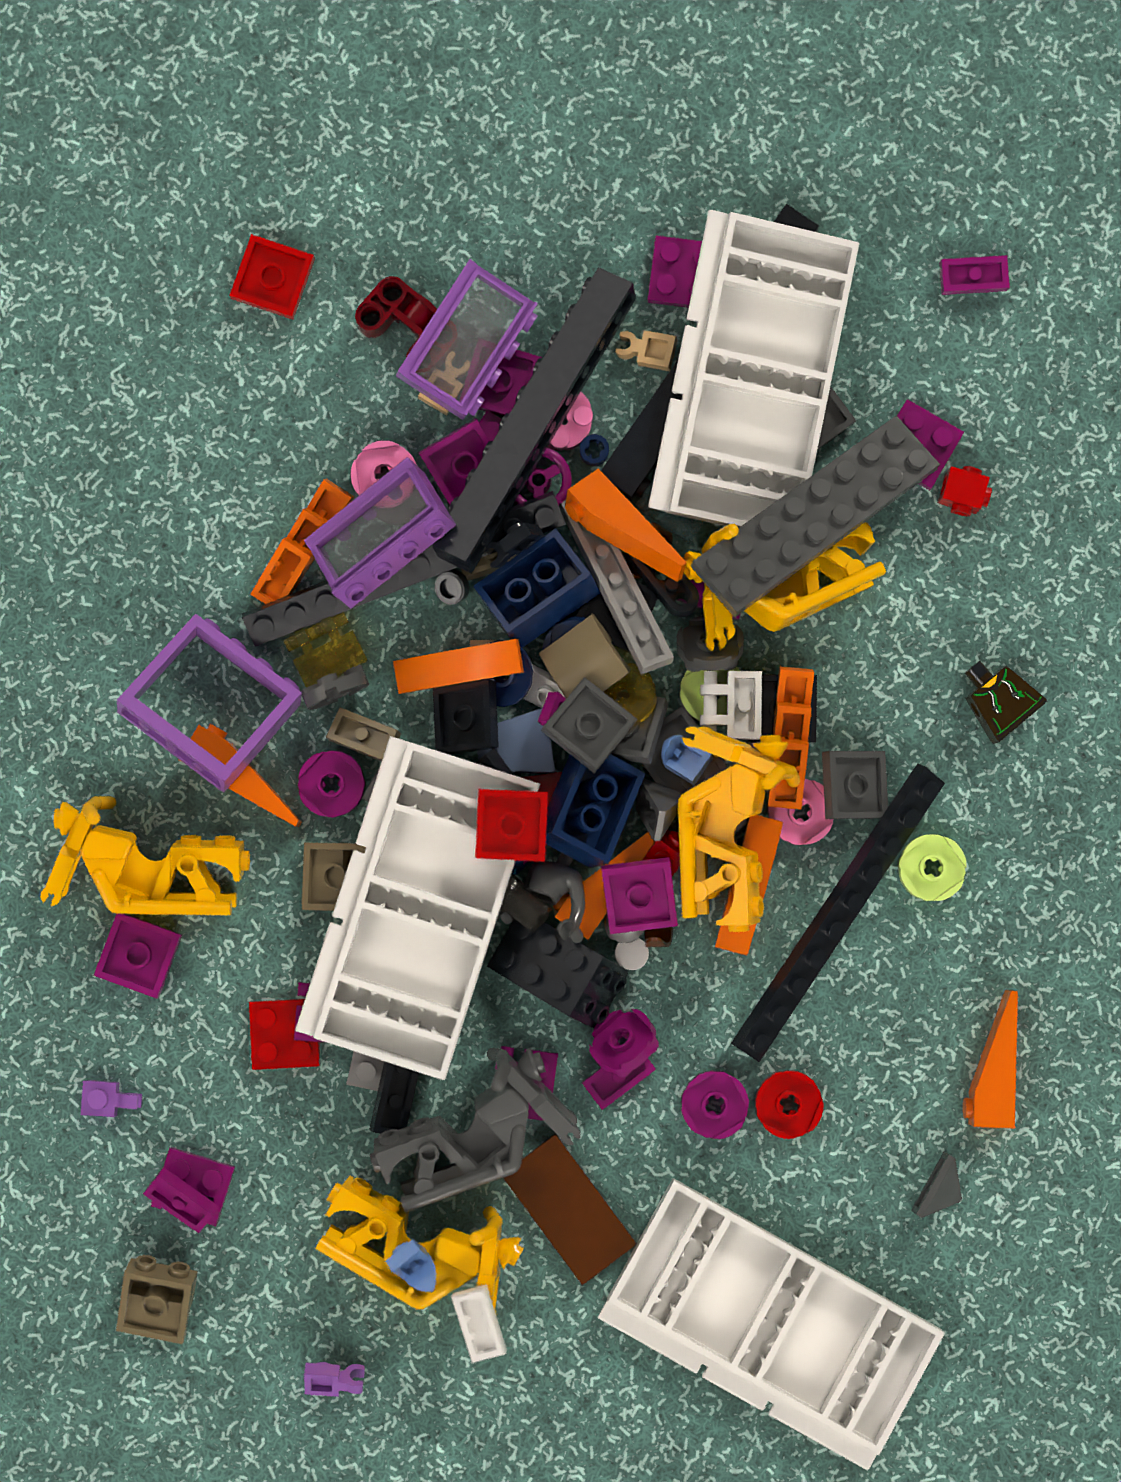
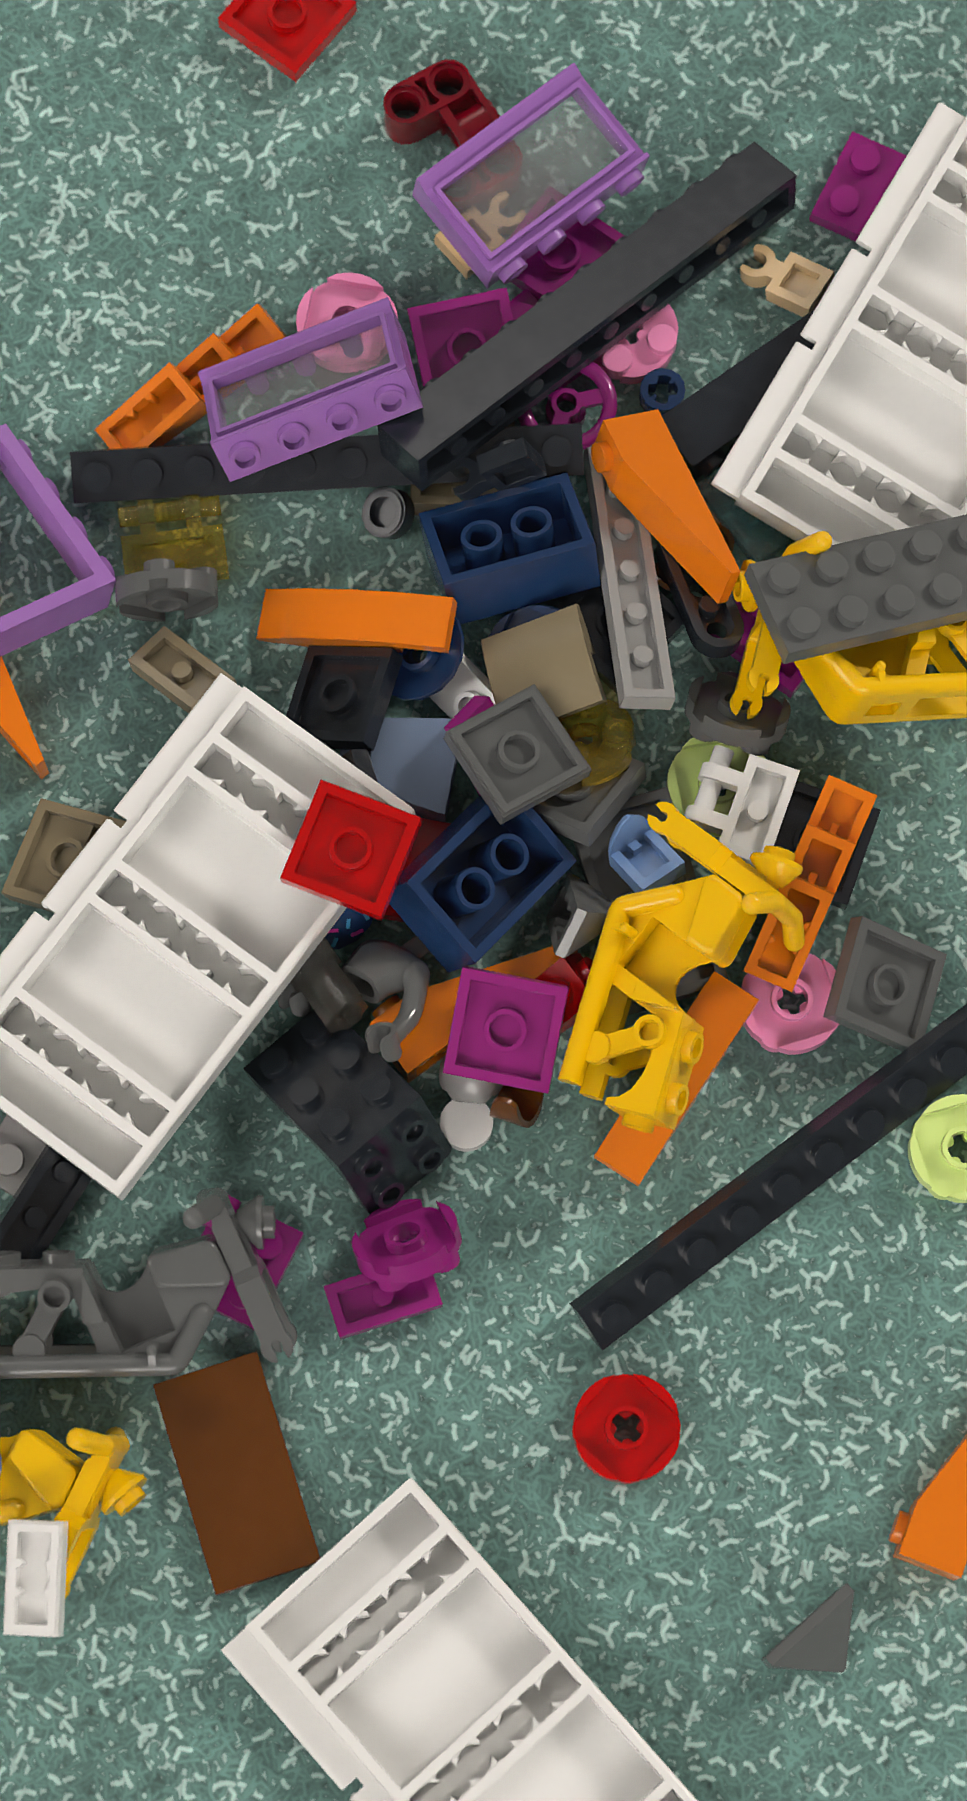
camera: 20 degrees right, 10 degrees down
(332, 803) = (122, 703): magenta plate -> none
(708, 1122) = (495, 1416): magenta plate -> none

